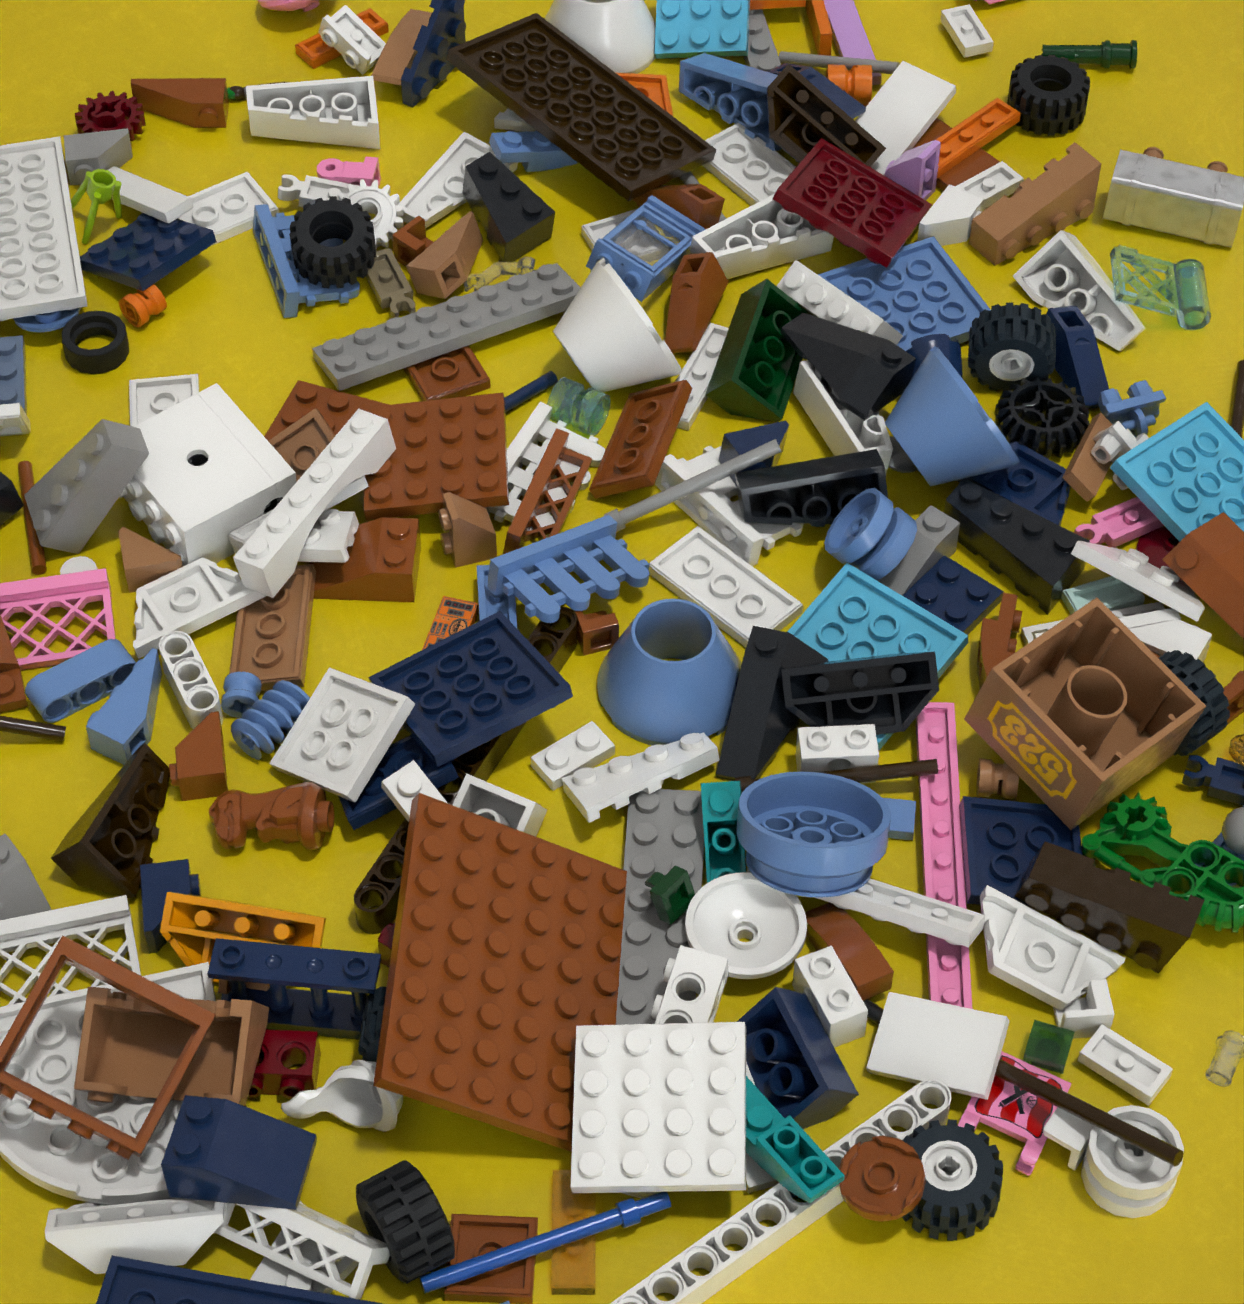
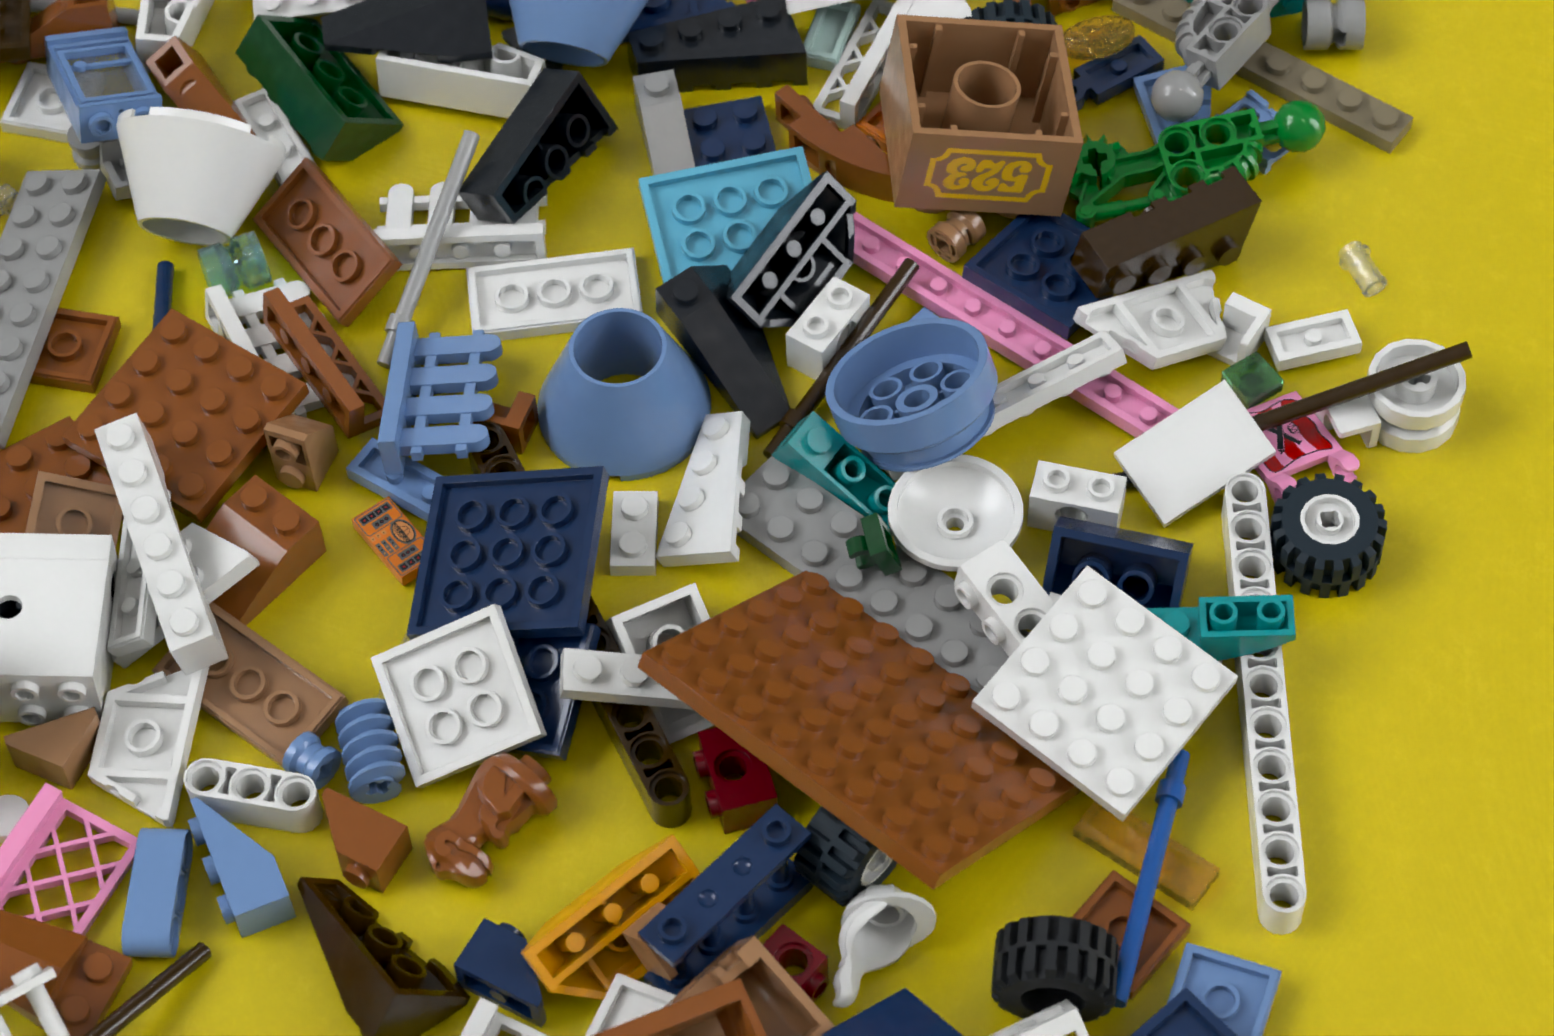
camera: 50 degrees left, 5 degrees up
(742, 441) = (428, 164): dark blue slope -> none
(857, 952) = (1020, 450): dark orange slope -> none
(871, 534) = (626, 139): medium blue wheel -> none
(882, 1178) = (1315, 585): dark orange tile -> none

